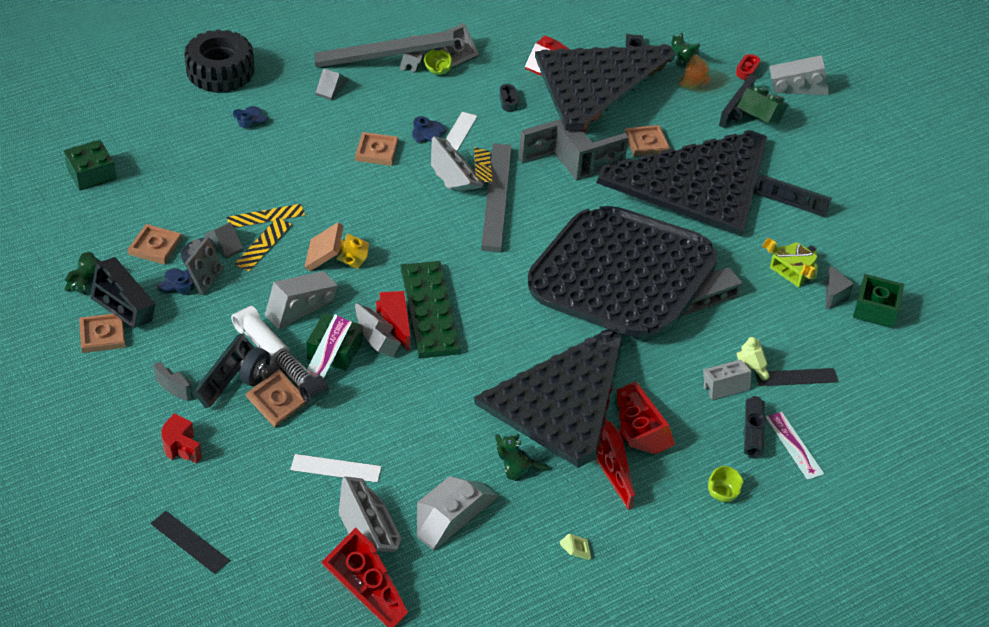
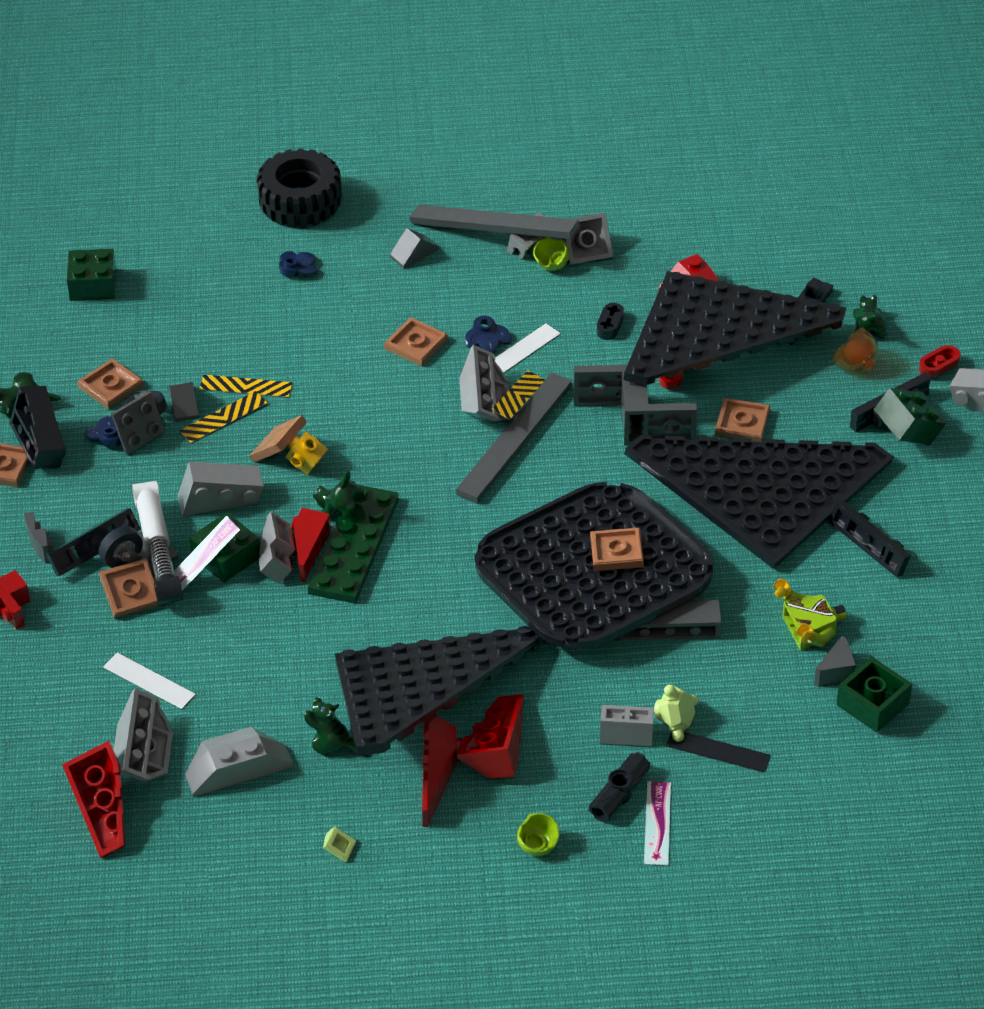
camera: 30 degrees right, 0 degrees up
(405, 275) = (340, 497): none -> dark green animal
(636, 252) = (616, 549): none -> nougat tile

